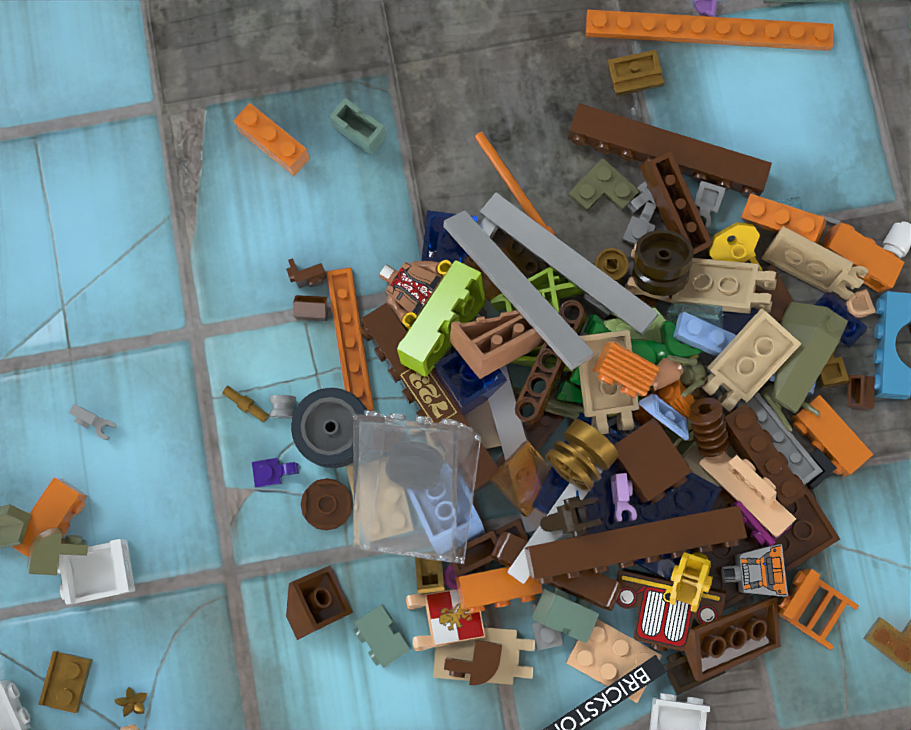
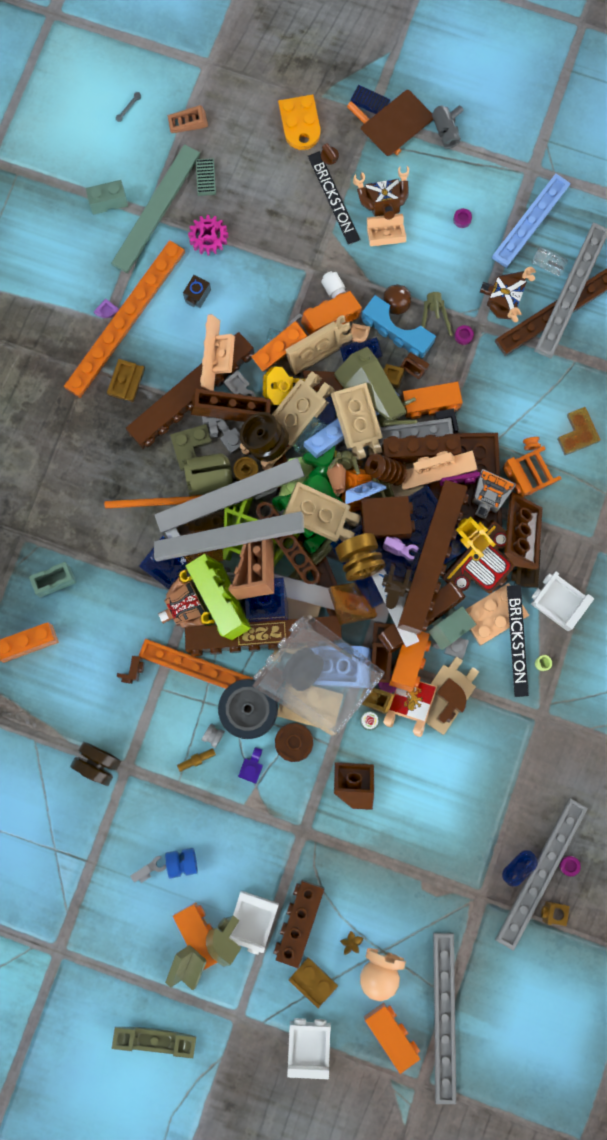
camera: 65 degrees left, 0 degrees up
(119, 453) = (181, 863): none -> blue wheel
(122, 628) = (299, 924): none -> reddish brown brick
(177, 293) = (94, 767): none -> dark brown wheel
(310, 308) = (157, 680): piece -> none
(384, 642) = (405, 753): sand green brick -> none
(401, 578) = (369, 720): none -> tile
(580, 224) = (207, 473): none -> olive cylinder
(625, 369) = (322, 498): orange brick -> none
(729, 151) = (217, 353): none -> light nougat bracket
(790, 89) = (196, 291): none -> dark brown brick
(852, 588) = (531, 443): none -> orange bush
(864, 63) = (210, 228): none -> dark pink gear

